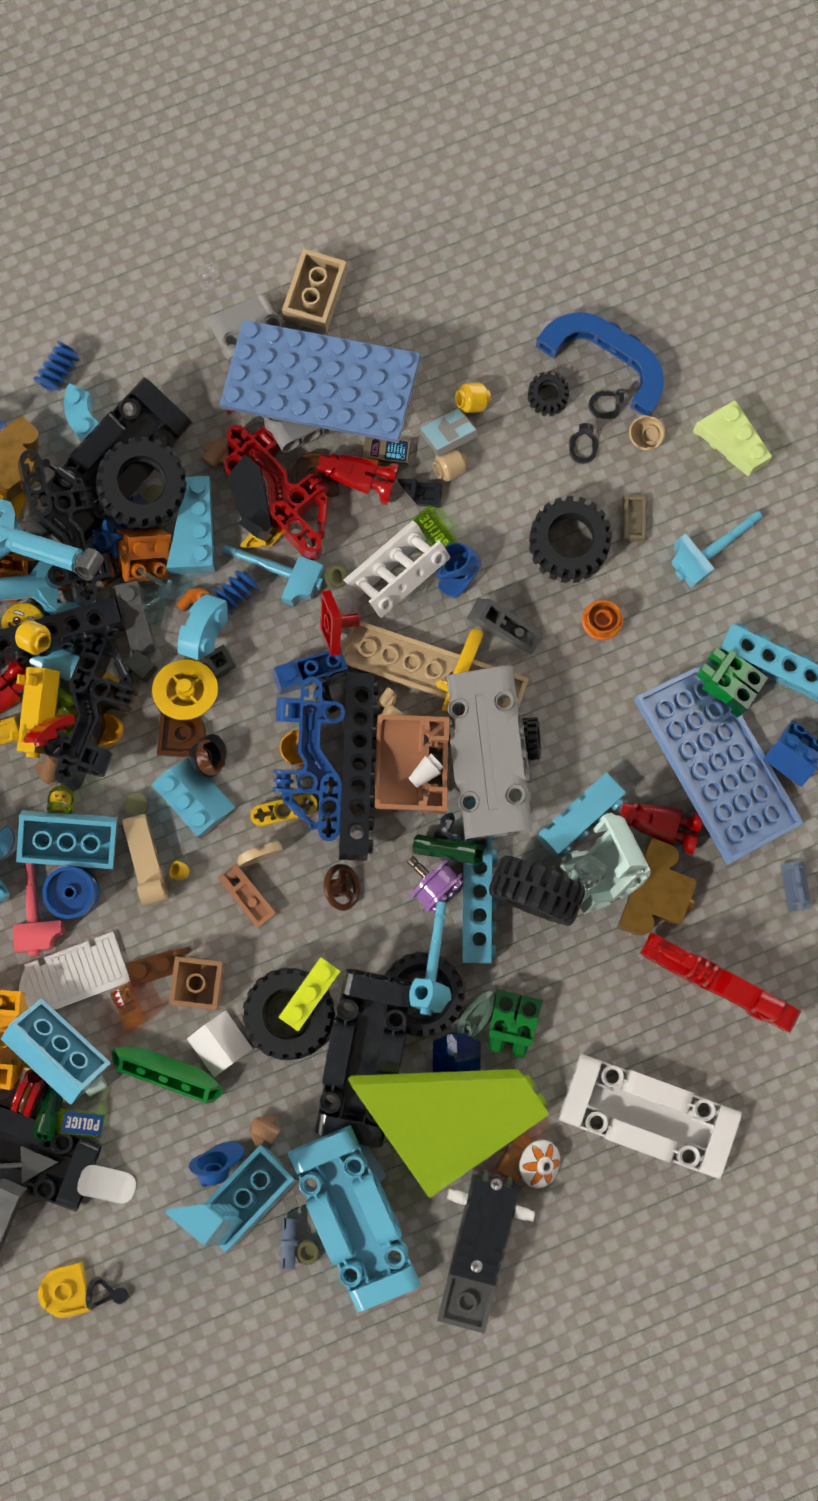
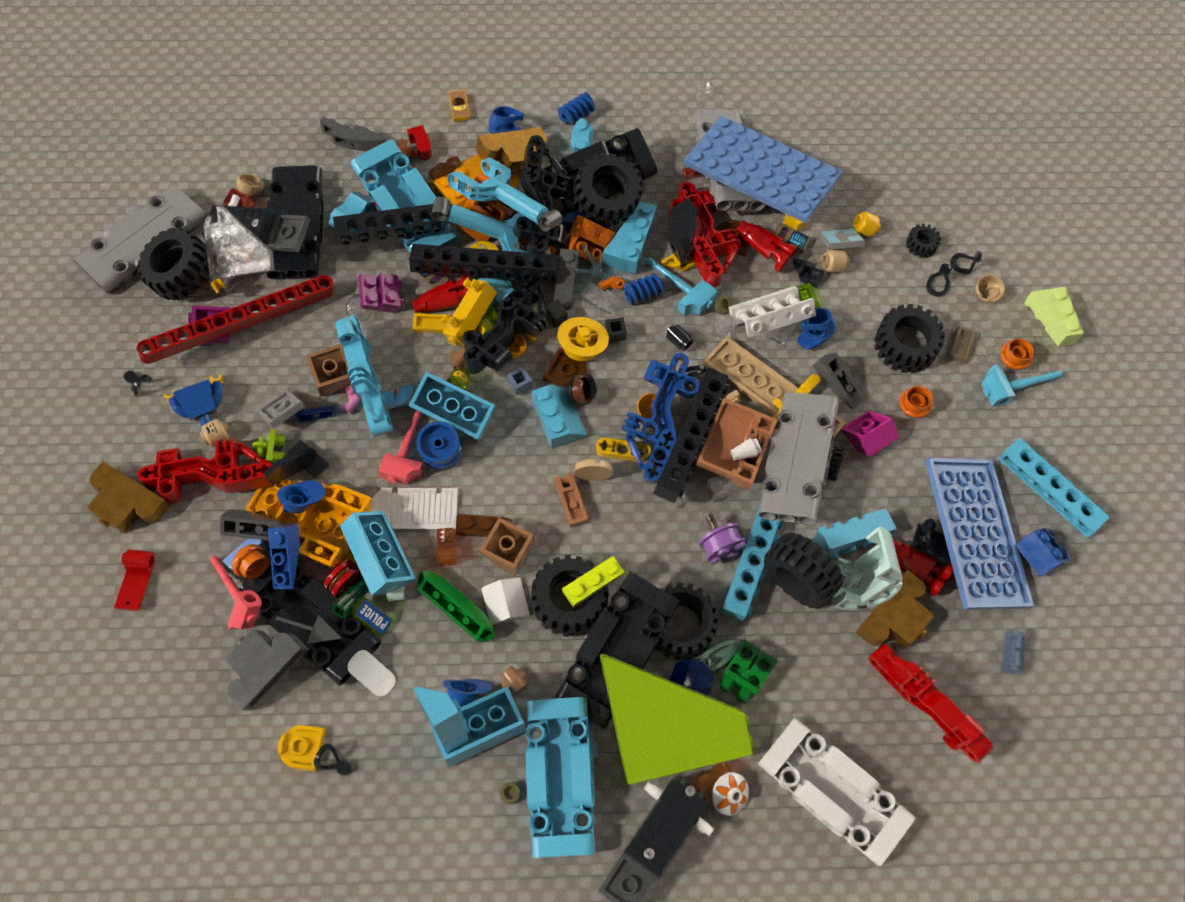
camera: 15 degrees right, 15 degrees down
(33, 637) = (488, 256): yellow head -> none
(47, 729) = (467, 324): red slope -> none
(107, 539) = (569, 218): blue animal -> none
(128, 765) = (519, 376): none -> sand blue plate
(136, 804) = (513, 406): olive tile -> none
(151, 882) = (504, 446): tan beam -> none
(179, 871) = (526, 462): yellow hinge -> none
(202, 627) = (613, 299): medium azure brick -> none
(215, 453) = (665, 197): medium nougat piece -> none
(288, 1243) = (497, 778): sand blue pin -> none
(298, 641) = (679, 337): none -> black brick
(314, 290) = (778, 117): tan brick -> none
(322, 666) = (664, 354): blue slope -> none
(332, 622) = (712, 328): red tile -> none
(338, 887) = (644, 518): reddish brown piece -> none
(427, 993) = (687, 609): medium azure piece -> none
(443, 833) = (739, 510): black piece -> none
(448, 849) = (729, 514): dark green axle -> none
(560, 679) = (870, 432): none -> dark pink slope
(616, 342) = (982, 222): blue arch -> none
(666, 791) = (931, 541): none -> black hinge
(702, 510) = (1017, 354): none -> orange piece
(731, 680) = (1006, 477): green hips -> none

